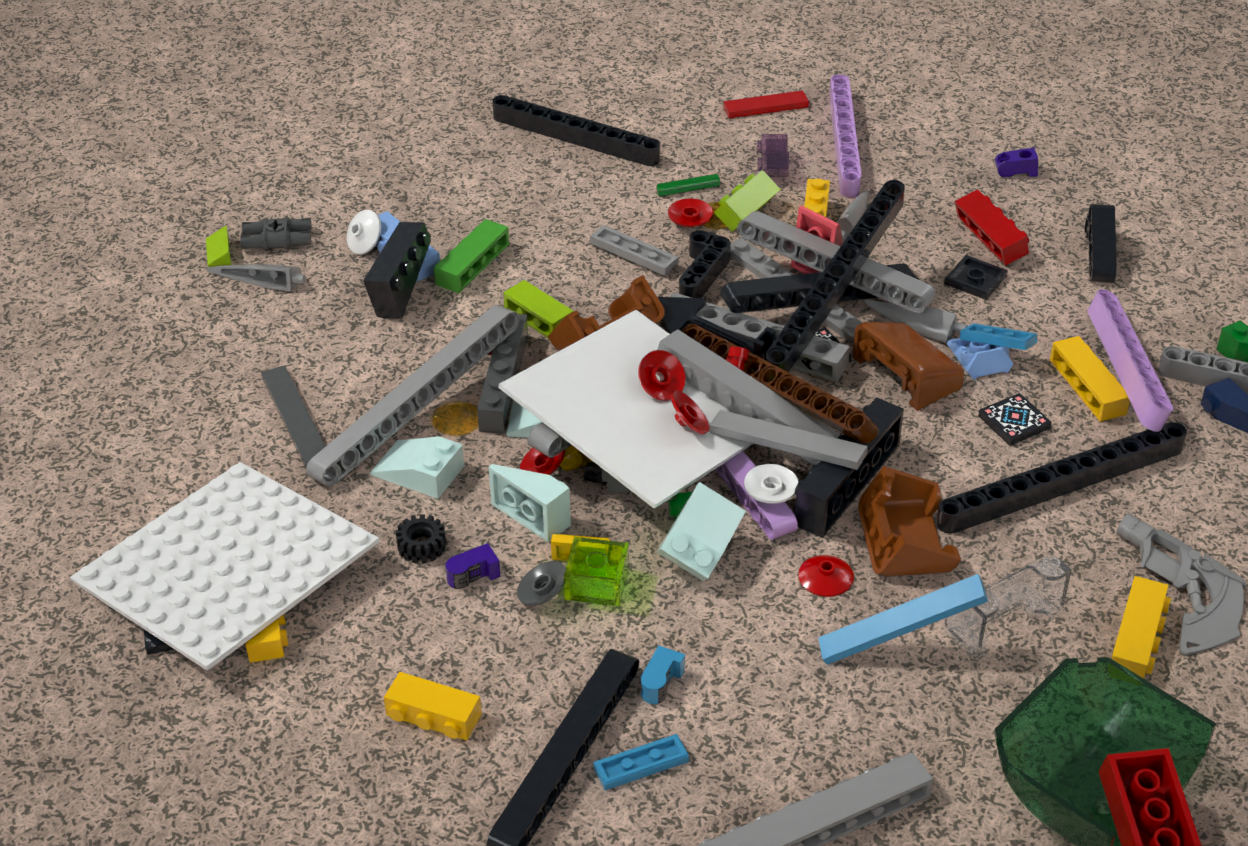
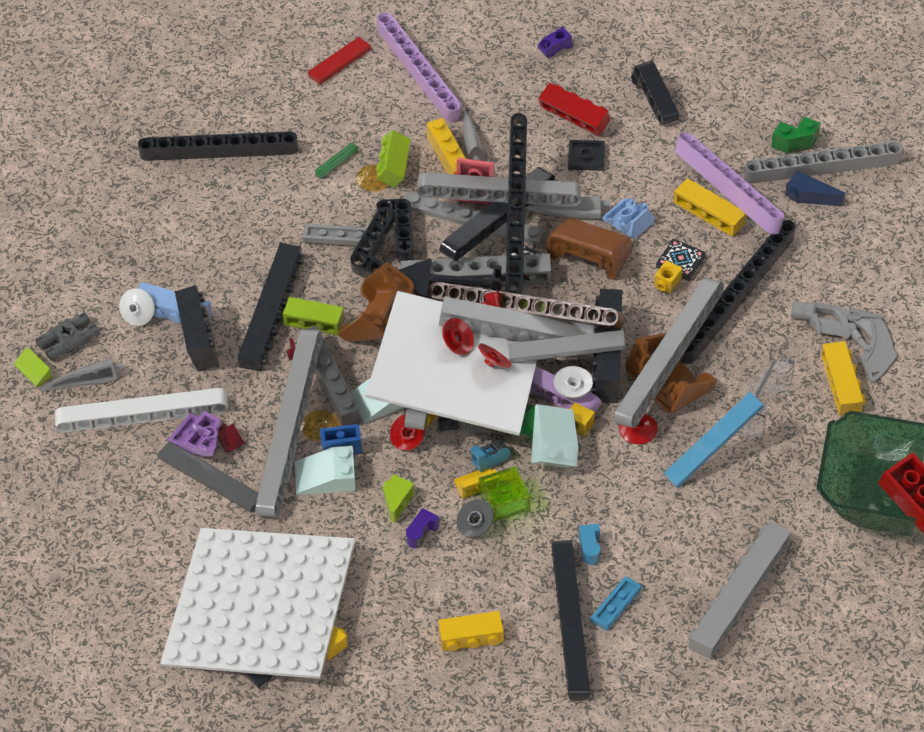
camera: 30 degrees left, 10 degrees up
(285, 325) = (140, 410): none -> white beam
(314, 368) = (197, 434): none -> medium lavender slope
(346, 387) = (229, 438): none -> dark red bracket
(421, 549) = (371, 534): black tyre -> none
(463, 431) = (341, 436): none -> blue brick
(471, 256) = (229, 291): bright green brick -> none
(473, 521) = (397, 495): none -> lime slope
(475, 298) = (270, 307): none -> black brick
(531, 499) = (426, 464): light aqua slope -> none
(618, 524) = (489, 455): none -> dark azure leg
(659, 259) = (373, 241): none -> black beam
(690, 212) = (358, 185): red dish -> none
(757, 532) = (583, 418): none -> yellow brick
(773, 155) = (382, 110): clear purple brick -> none
(913, 500) = (668, 353): none -> light grey beam
(982, 428) = (668, 277): none -> yellow brick
(999, 336) = (637, 201): dark azure tile -> none

